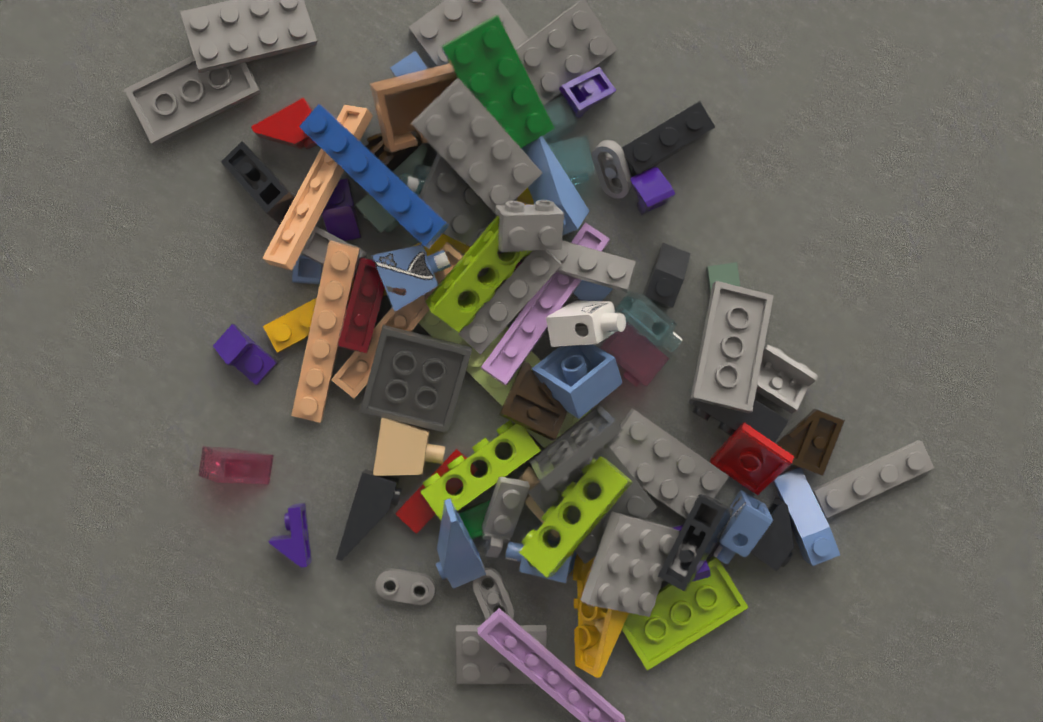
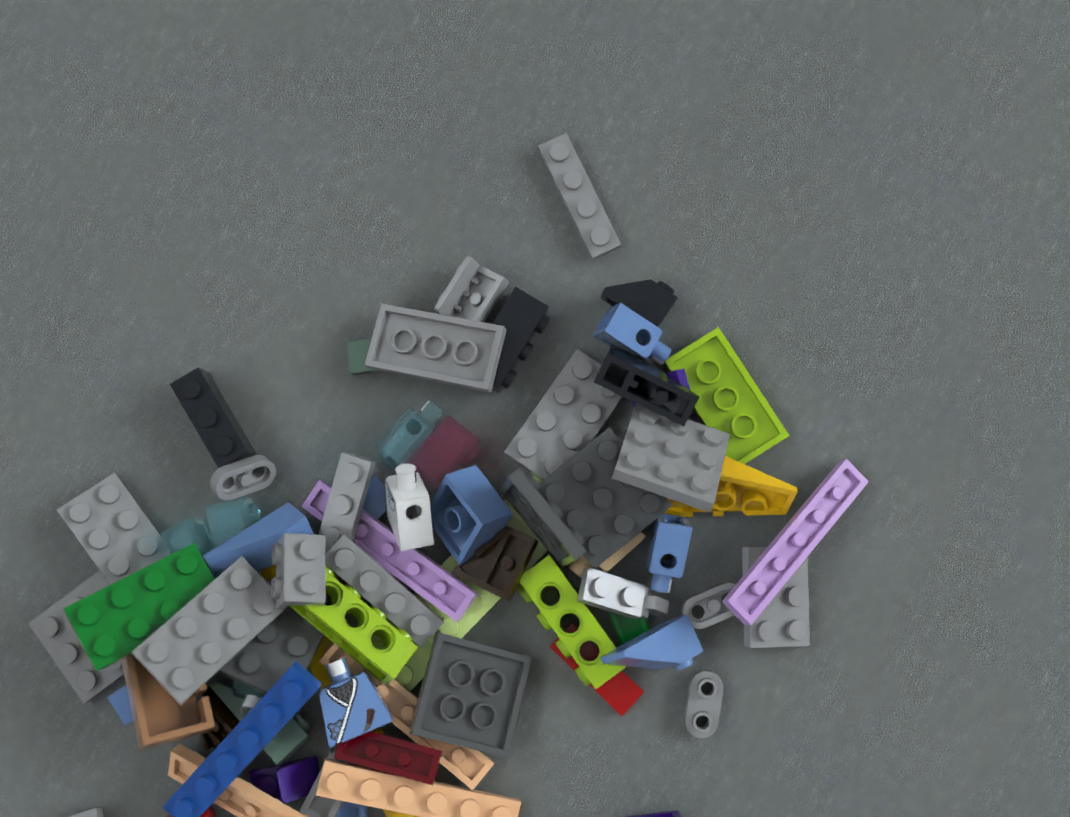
camera: 90 degrees left, 5 degrees down
(370, 504) = (610, 744): black slope -> none
(404, 449) = (550, 706): tan torso -> none
(536, 546) = (612, 499): lime brick -> none
(587, 91) = (158, 506): slope -> none
(652, 190) = (266, 434): dark purple slope -> none
(667, 276) = (360, 416): black slope -> none
(751, 459) = (557, 325): red tile -> none
(806, 518) = (620, 266): medium blue slope -> none
(813, 440) = (539, 263): dark brown wing -> none

